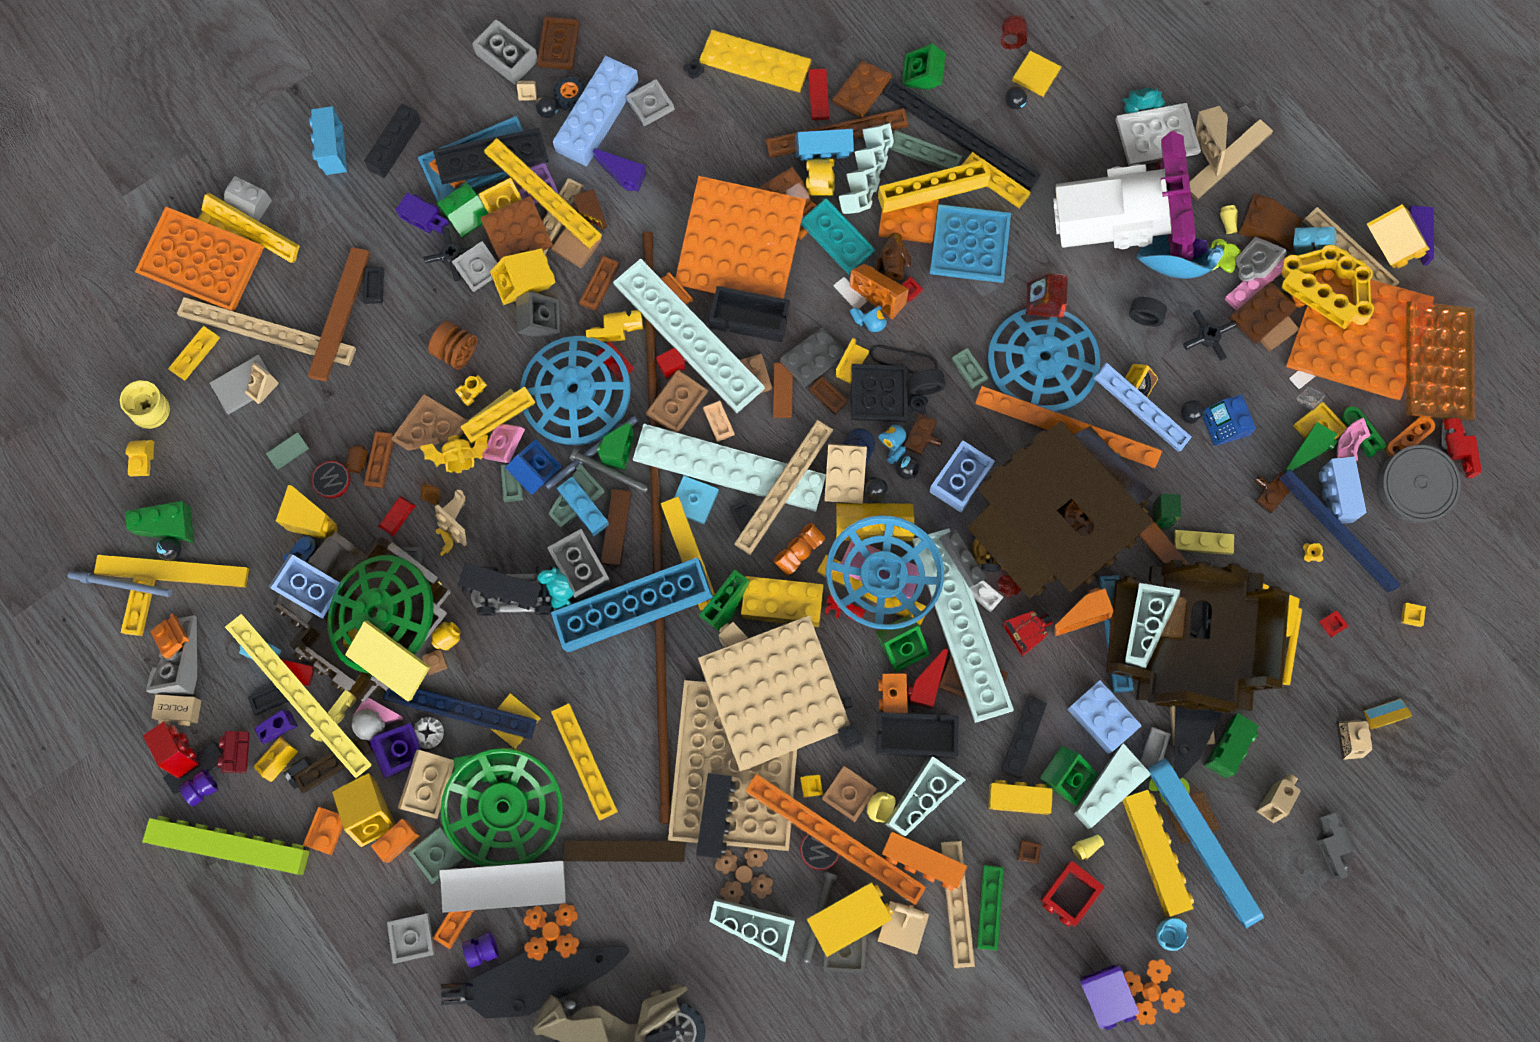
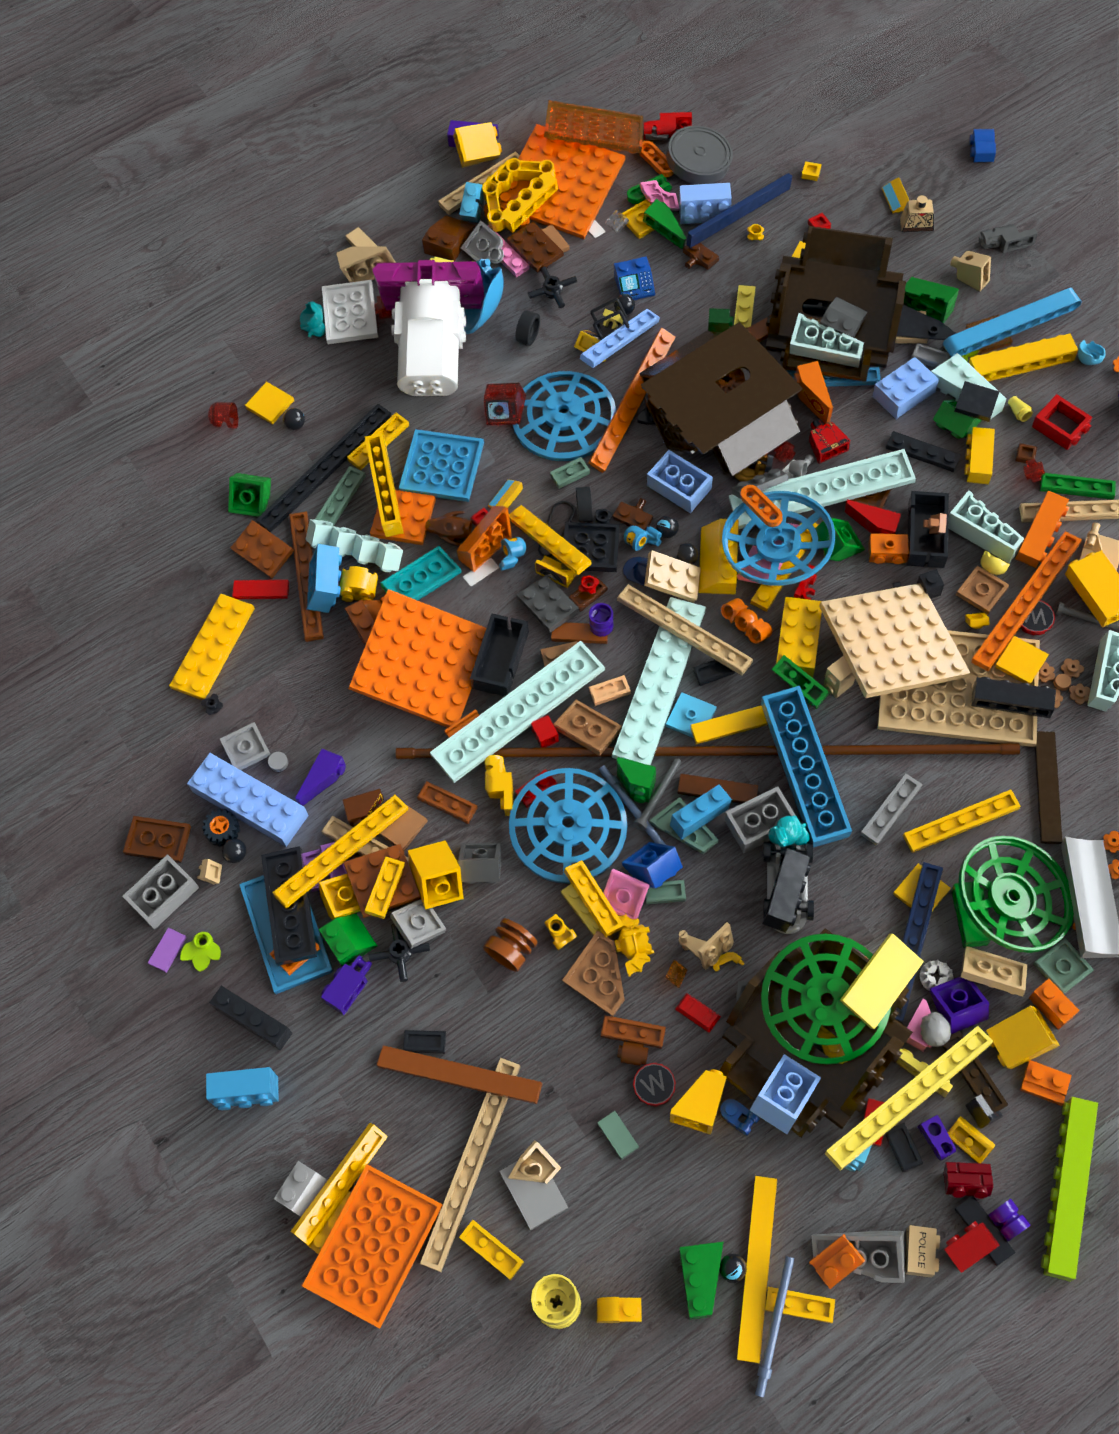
camera: 85 degrees left, 10 degrees down
(454, 94) = (199, 953): none -> lime plate
(457, 67) = (167, 950): none -> medium lavender tile
(502, 231) = (384, 887): none -> yellow plate
(596, 692) = (891, 809): none -> light grey plate
(637, 133) = (278, 761): none -> light grey tile
(760, 828) = (1021, 660): none -> yellow tile
(789, 405) = (601, 619): none -> dark purple wheel
(833, 388) = (588, 580): none -> red plate
(882, 351) = (549, 540): none -> yellow plate
(918, 740) = (936, 523): none -> nougat tile
(923, 545) = (758, 500): none -> orange plate
(938, 308) = (507, 494): none -> yellow slope
(987, 601) = (799, 467): none -> light grey bar
(1002, 856) = (1033, 470): none -> clear red gear
(1079, 790) = (976, 401): none -> black tile
(1155, 410) = (596, 322): none -> black piece
(1174, 401) = (615, 319): none -> light yellow tile
(1180, 642) = (843, 317): none -> dark grey slope
(1479, 822) = (983, 145): none -> blue brick

